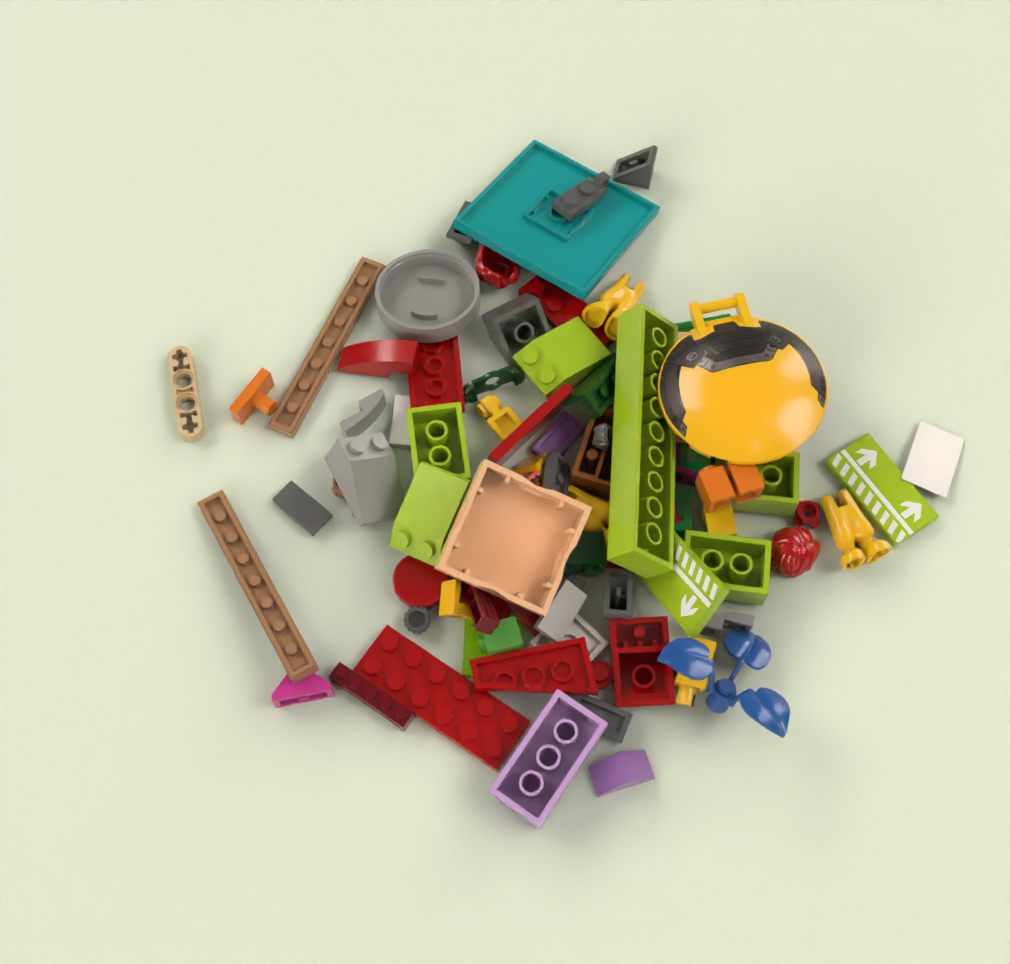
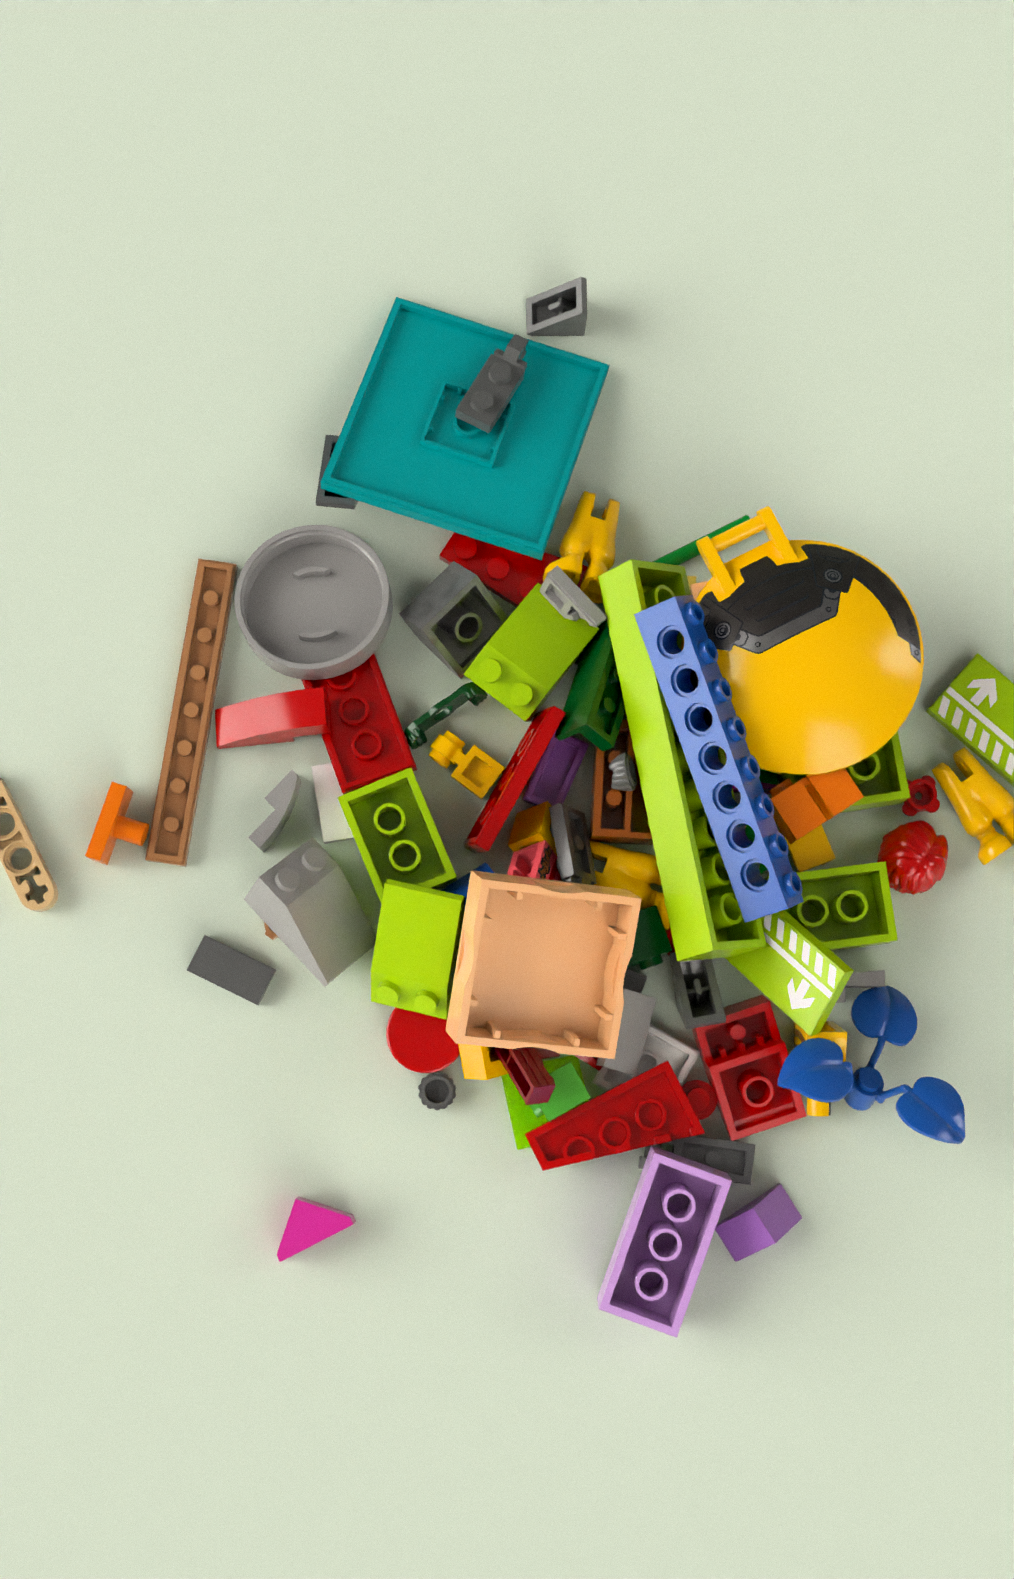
camera: 20 degrees left, 15 degrees up
(258, 587) = (207, 1104): medium nougat tile -> none
(372, 696) = (406, 1211): dark red piece -> none
(442, 698) = (497, 1186): red plate -> none
(495, 268) = (399, 535): red hair -> none
(595, 325) = (570, 599): none -> light grey tile
(663, 448) = (700, 745): none -> brick

